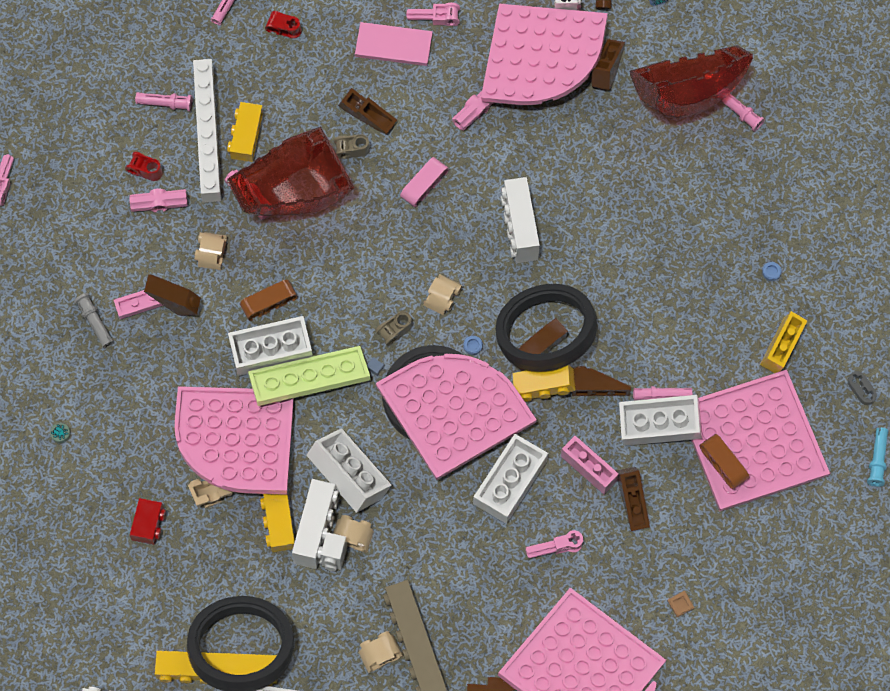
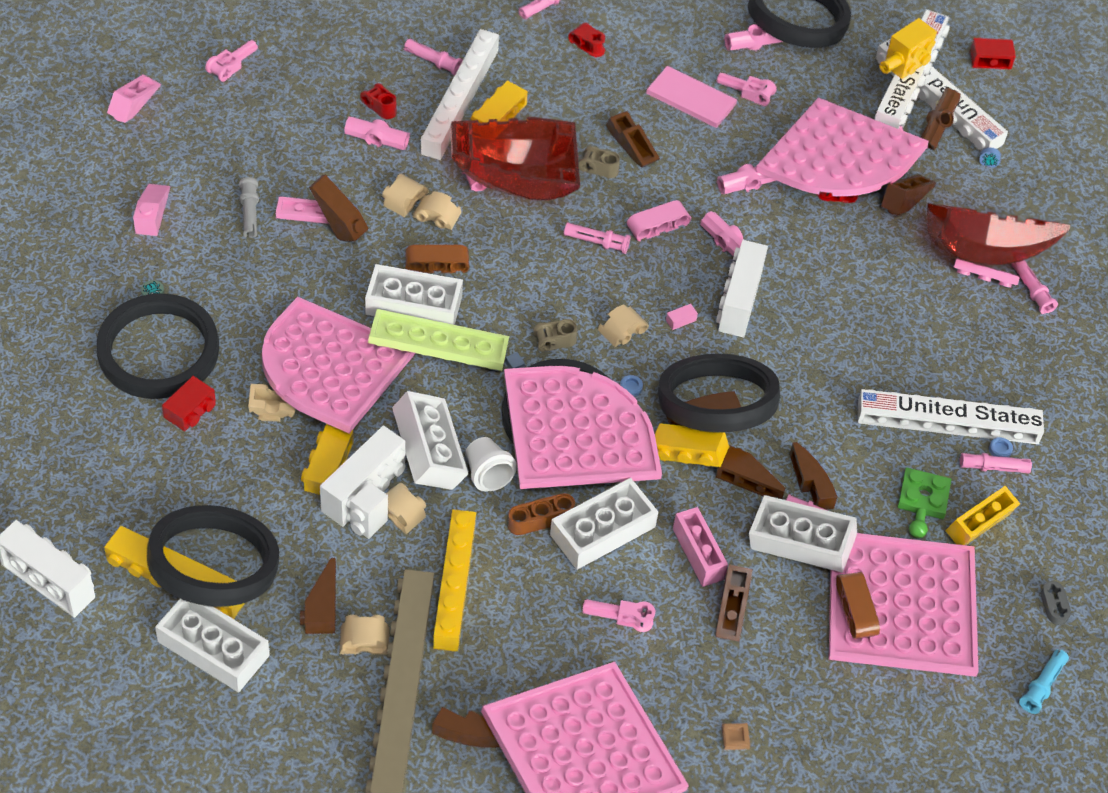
camera: 20 degrees right, 15 degrees down
(16, 357) = (150, 209): none -> bright pink slope
(79, 441) = (149, 305): none -> black tyre
(245, 252) = (438, 209): none -> tan cylinder
(338, 645) = (320, 604): none -> reddish brown slope
(393, 219) = (608, 241): none -> bright pink pin
(402, 468) = (489, 465): none -> white piece
(424, 576) = (454, 580): none -> yellow brick
(464, 483) = (529, 517): none -> dark orange beam
(483, 172) = (724, 235): none -> bright pink piece
(483, 264) = (681, 316): none -> bright pink piece
(645, 365) = (812, 477): none -> reddish brown slope
(716, 112) = (986, 273): none -> bright pink plate
(723, 262) = (950, 416): none -> white brick
(726, 349) = (914, 501): none -> bright green plate
(766, 290) = (985, 462): none -> bright pink pin

